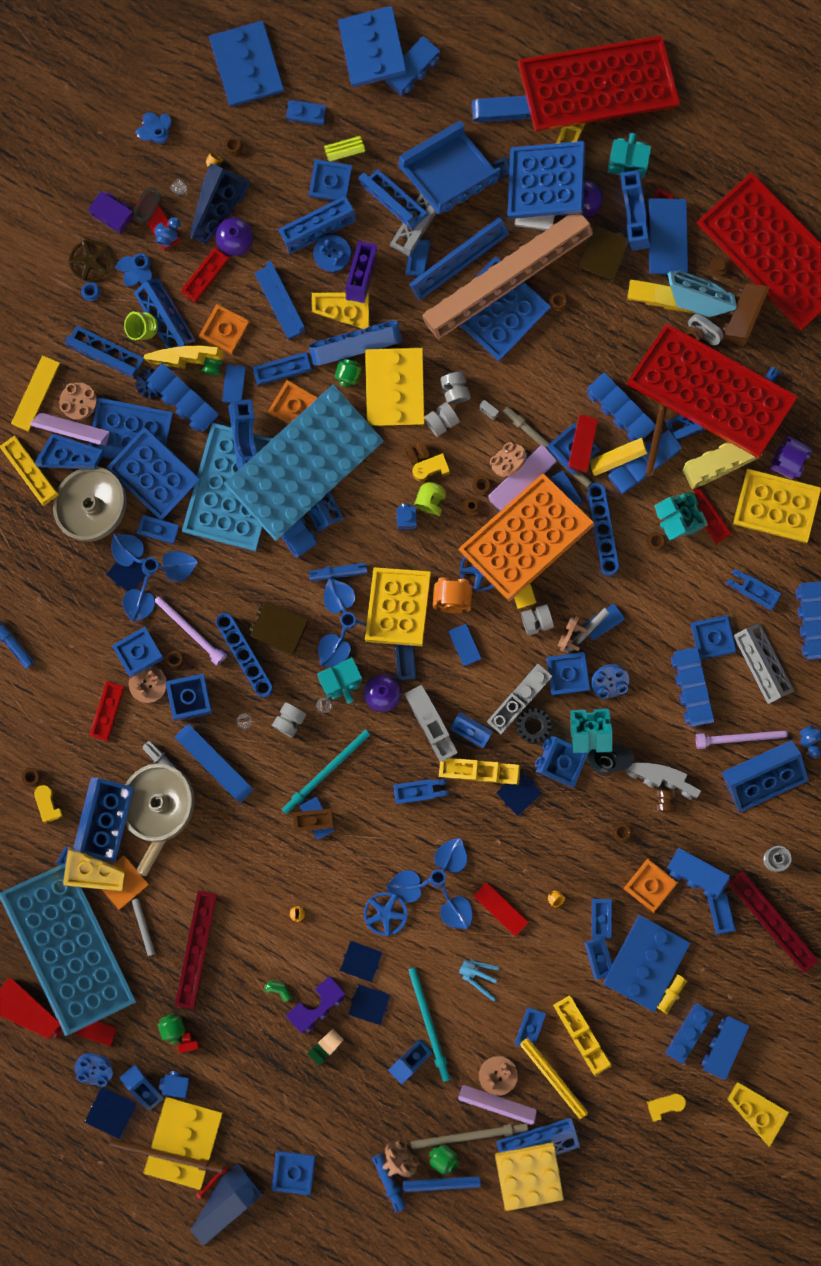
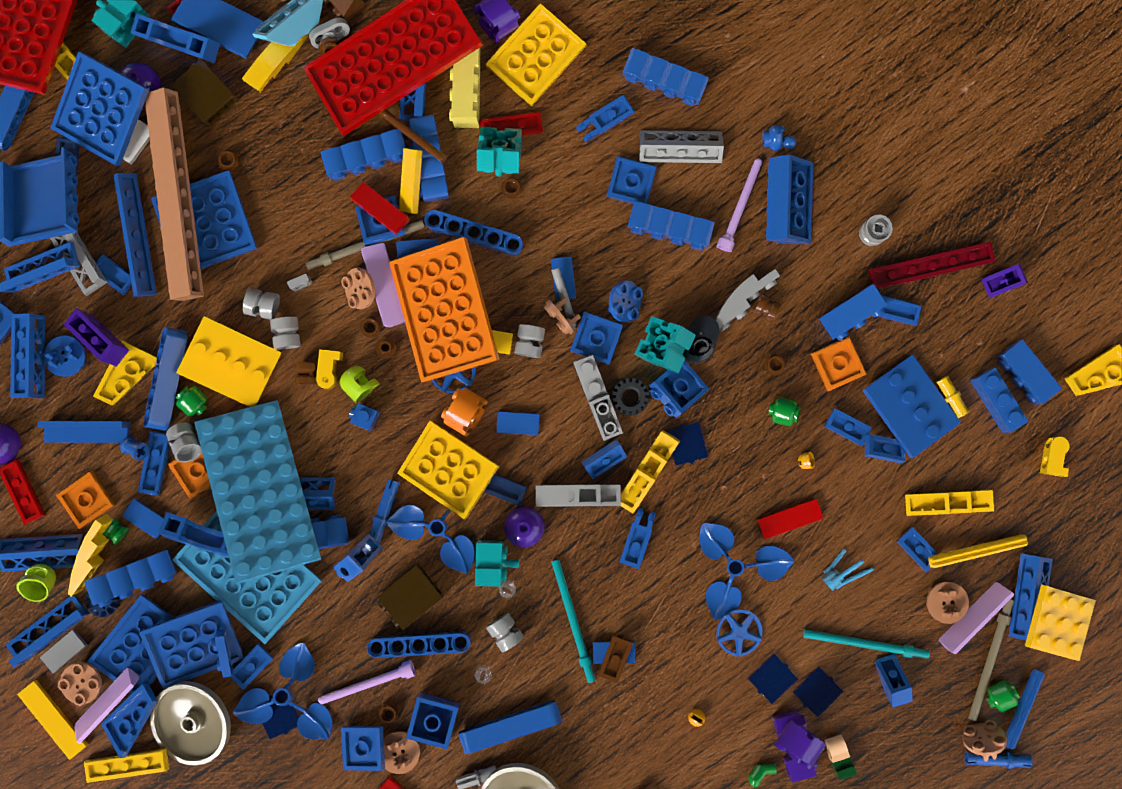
camera: 60 degrees left, 5 degrees up
(94, 374) = (63, 651): none -> light grey tile
(165, 495) = (221, 645): none -> blue plate
(281, 566) = (351, 565): none -> blue torso
(286, 344) = (137, 449): none -> blue bush
(312, 384) = (183, 442): none -> light grey wheel
(321, 1001) = (800, 744): none -> dark purple brick
(587, 859) = (784, 411): none -> green head
(791, 988) = (1004, 280): none -> dark purple slope

